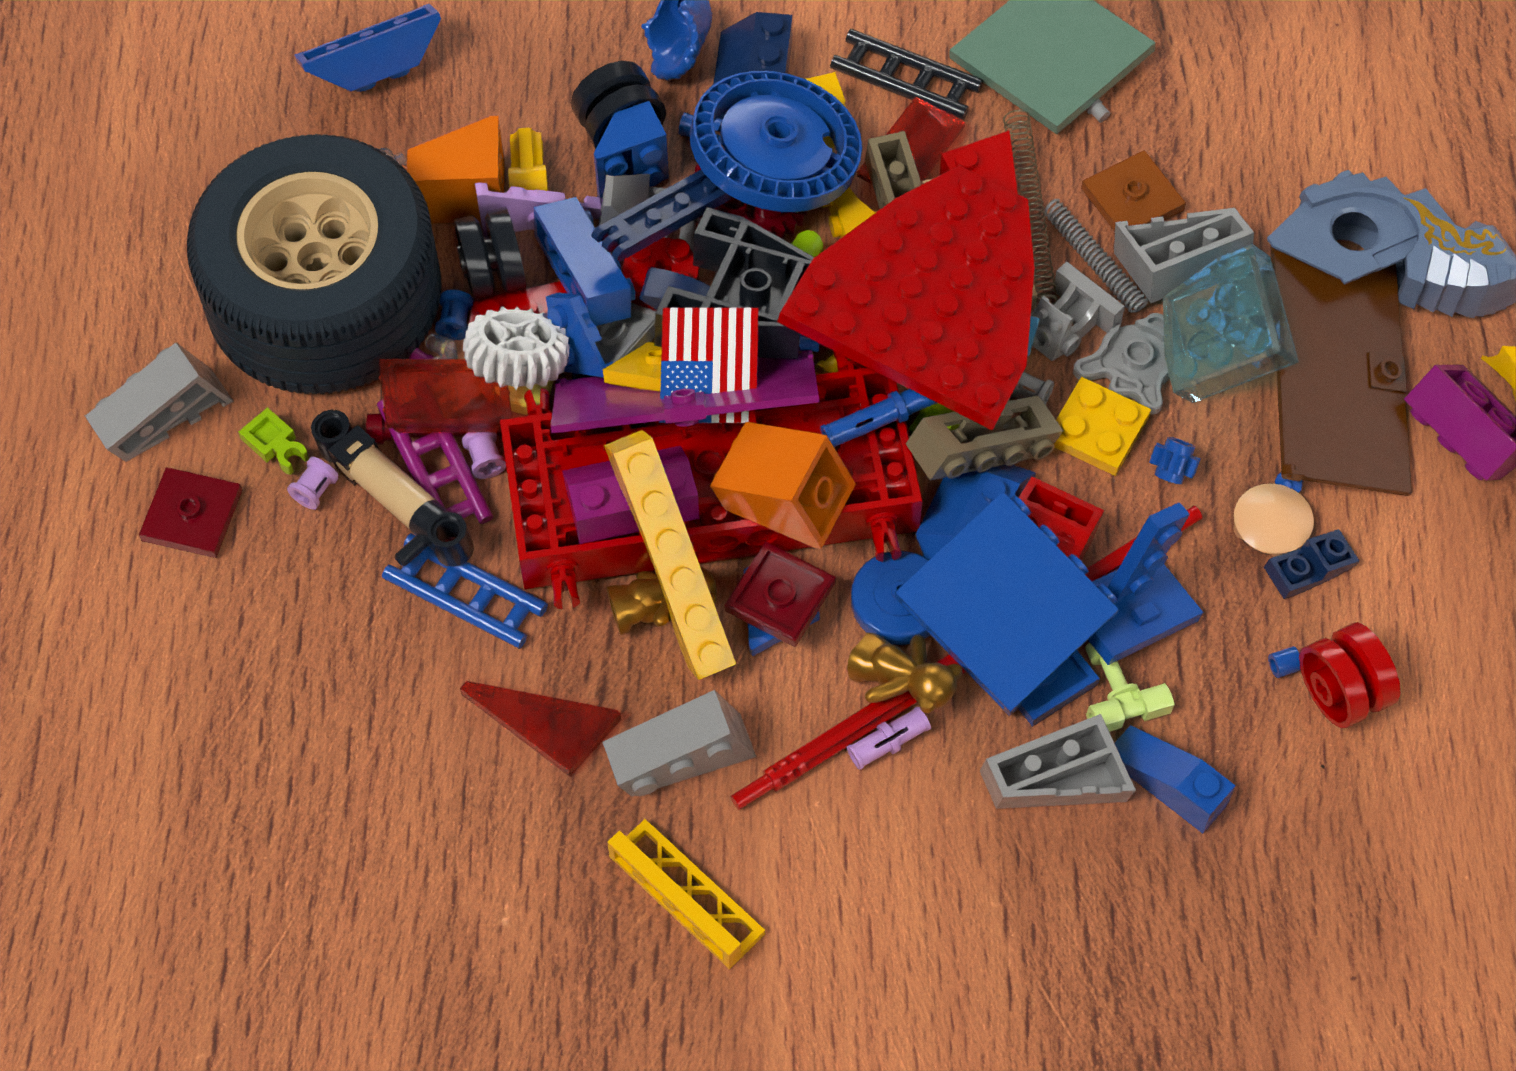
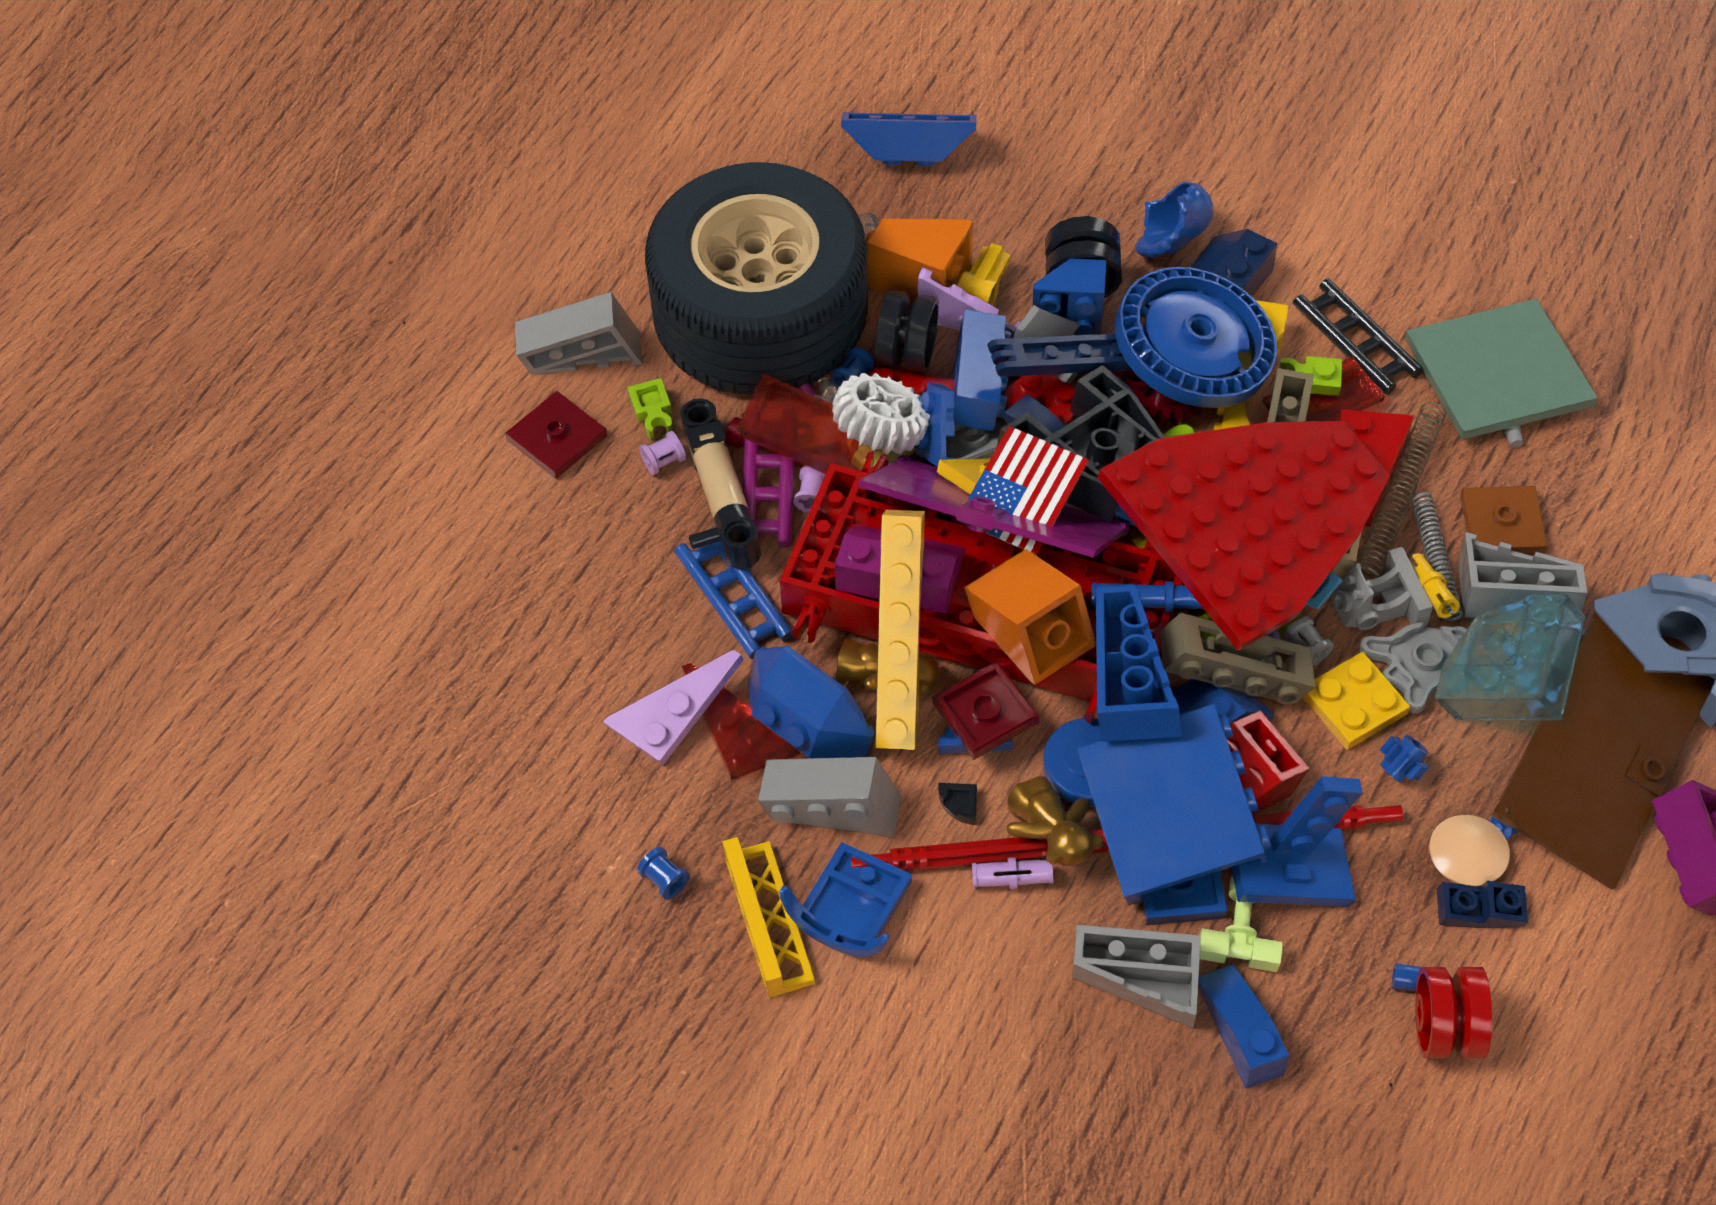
camera: 30 degrees right, 5 degrees down
(474, 746) = (667, 715): none -> lavender wing
(563, 900) = (663, 873): none -> blue bush
(607, 670) = (806, 706): none -> blue wedge
(759, 841) = (850, 904): none -> blue piece
(799, 692) = (959, 801): none -> black tile
(894, 121) = (1326, 373): none -> lime plate
(916, 502) = (1131, 680): none -> blue wedge
(1115, 286) = (1435, 587): none -> yellow pin

